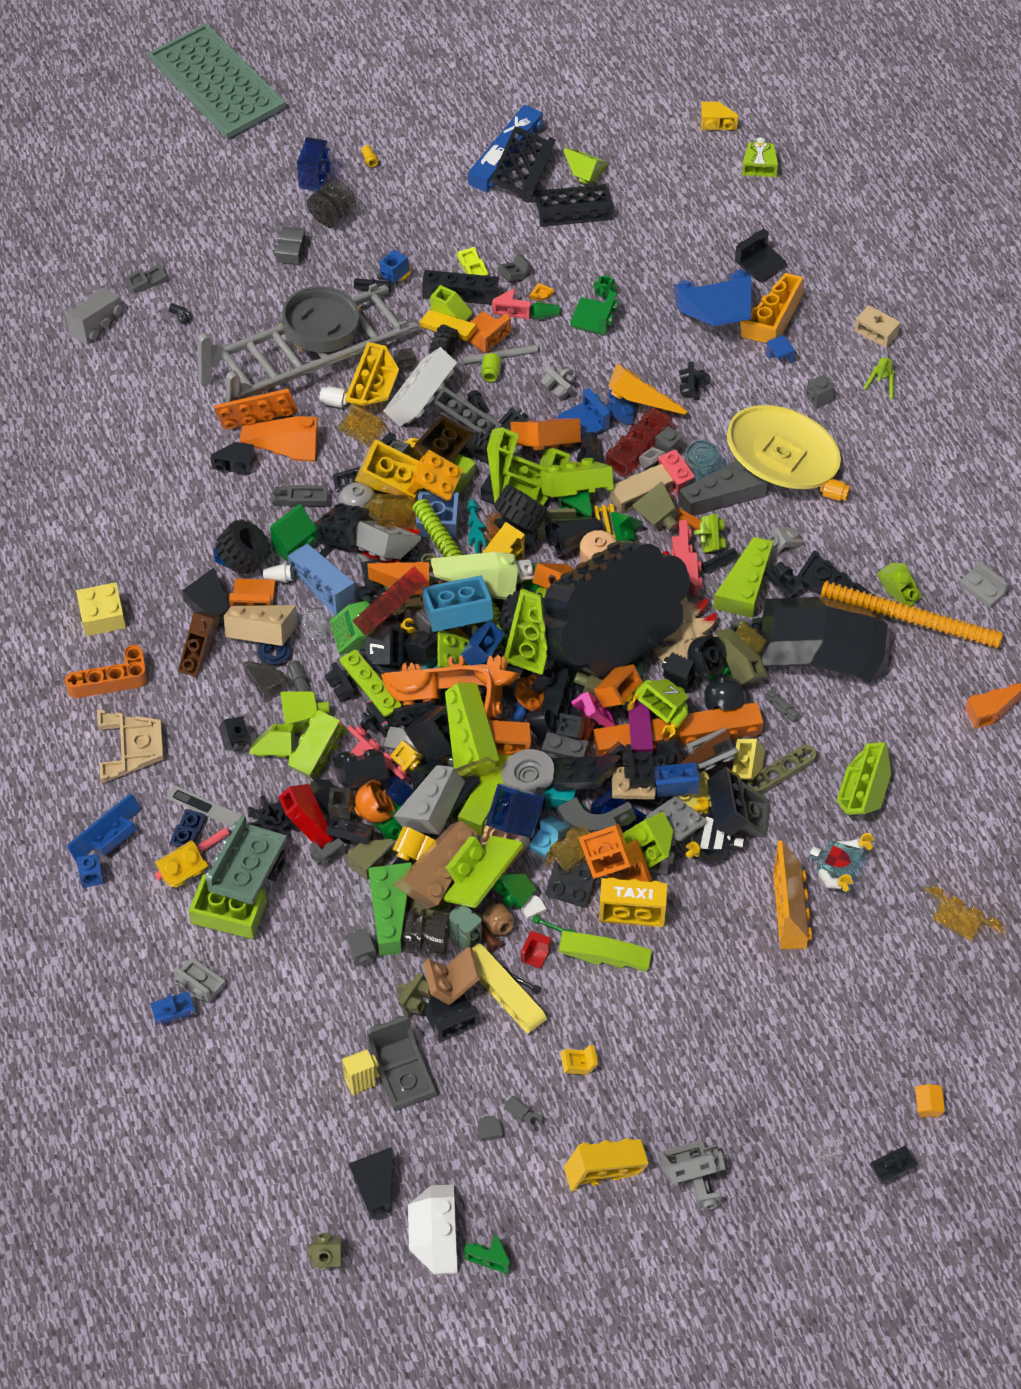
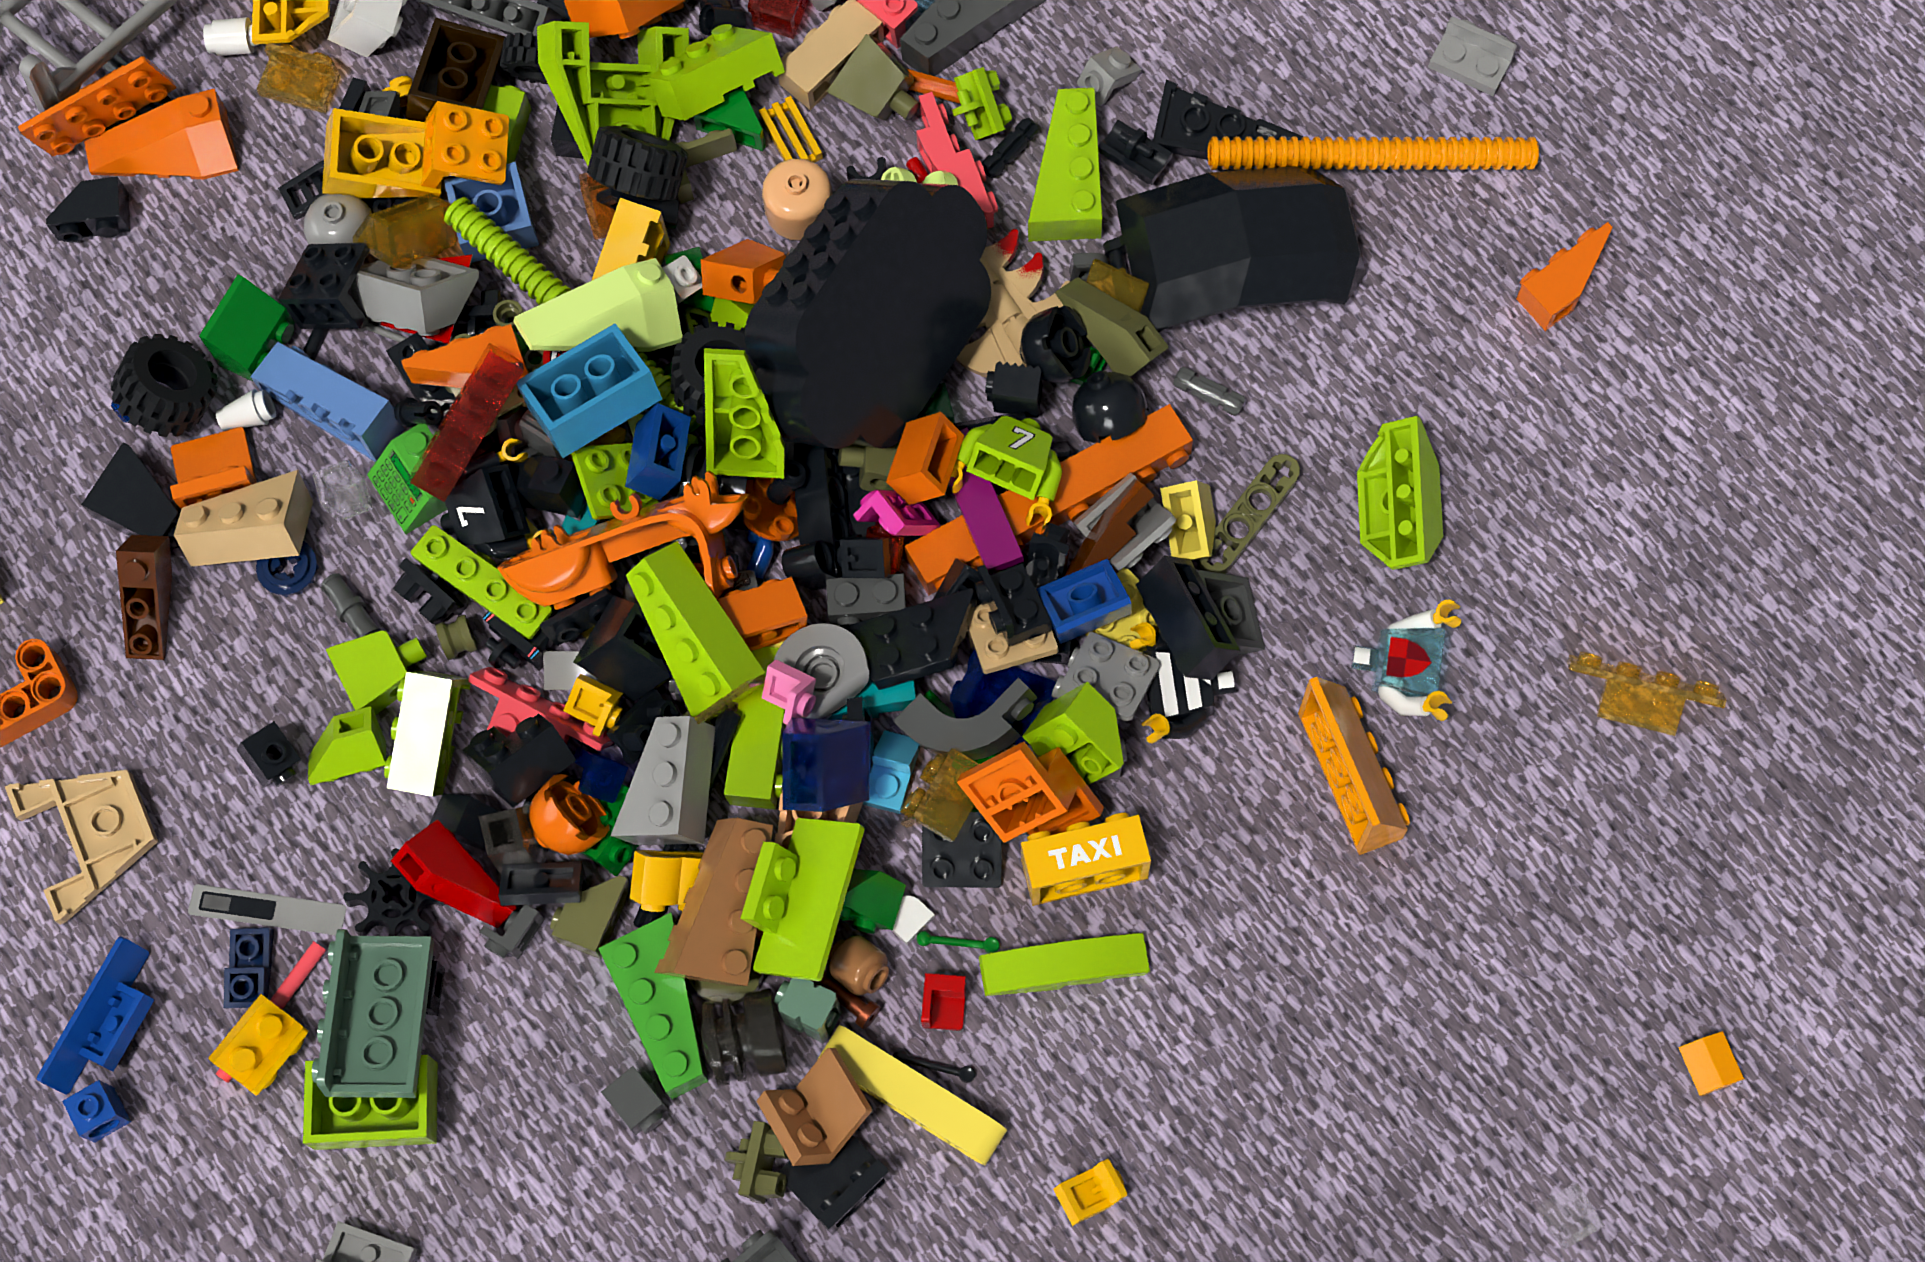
camera: 15 degrees left, 15 degrees up
(265, 679) = (292, 628): clear smoke slope -> none
(300, 494) = (235, 247): dark grey hinge -> none
(348, 707) = (456, 637): none -> olive wheel
(476, 525) = (567, 224): teal piece -> none
(509, 772) = (789, 690): none -> bright pink bracket
(567, 532) = (735, 177): black cone -> none
(624, 526) = (825, 137): green slope -> none
(893, 1164) = (1694, 1211): black hips -> none
(899, 583) = (1331, 98): lime slope -> none

